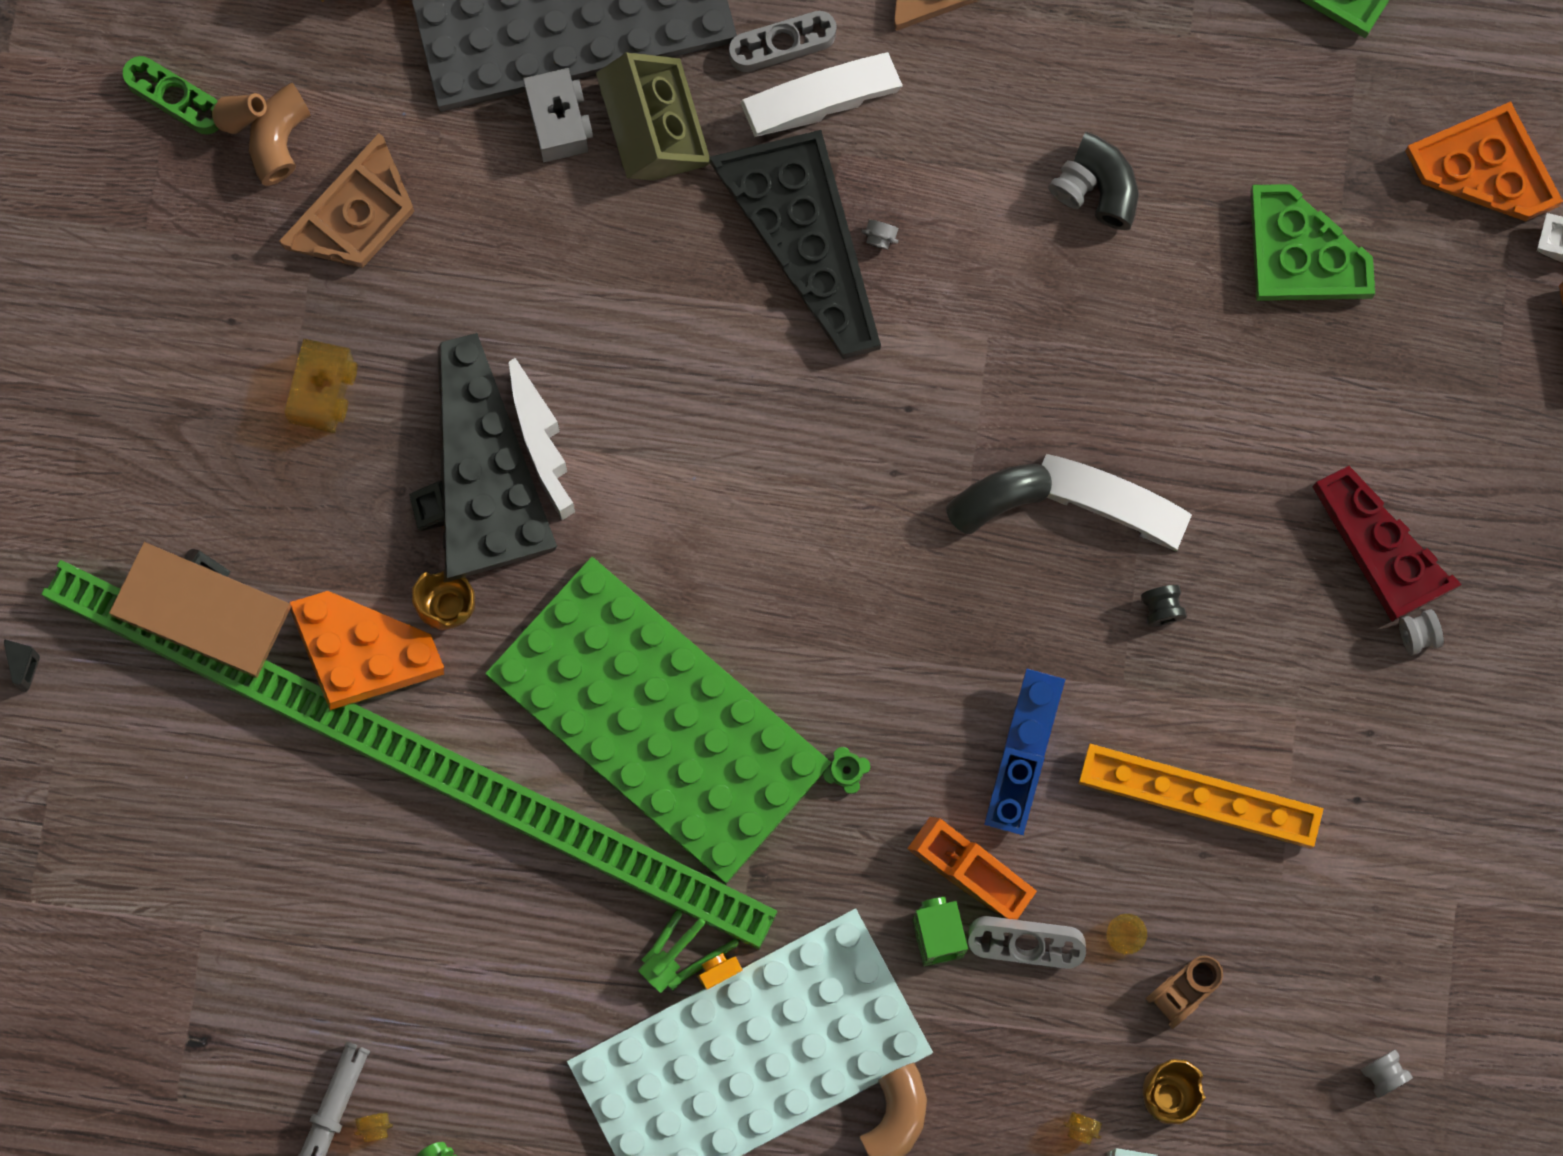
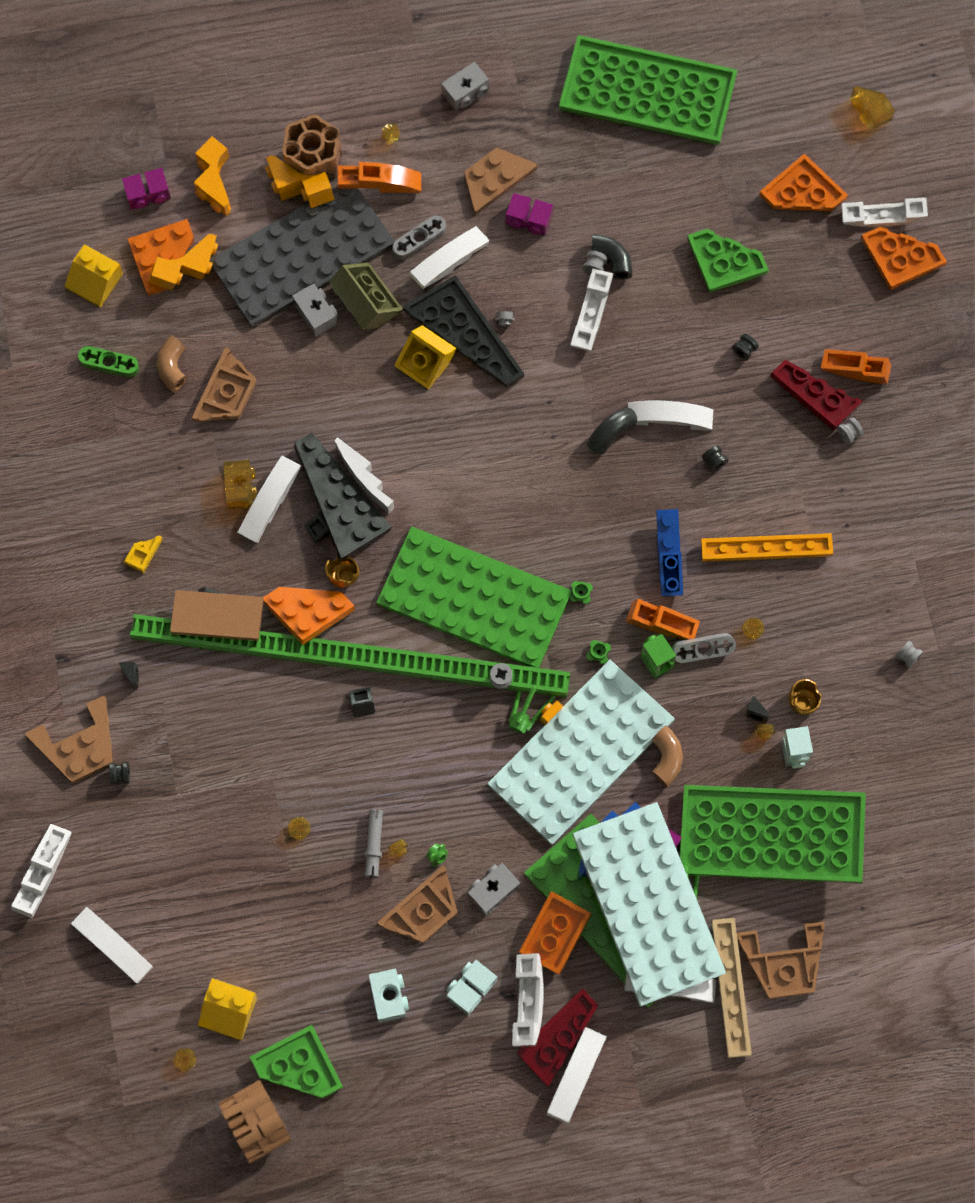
camera: 15 degrees left, 5 degrees down
(116, 455) = (142, 554): none -> yellow tile
(216, 1033) = (299, 828): none -> clear yellow plate
(236, 112) = (146, 359): medium nougat cone -> none
(363, 428) = (269, 499): none -> white slope
(400, 842) = (362, 702): none -> pearl dark grey slope
(653, 888) = (499, 680): none -> light grey wheel
(718, 259) = (424, 356): none -> yellow slope
(830, 891) = (603, 647): none -> bright green plate
(973, 47) = (519, 210): none -> magenta piece
(1038, 268) = (592, 310): none -> white slope
(1081, 1088) = (757, 711): none -> pearl dark grey slope
(1184, 991) = (792, 648): medium nougat piece -> none
(1286, 420) = (745, 346): none -> pearl dark grey wheel
(1472, 517) = (857, 366): none -> orange slope

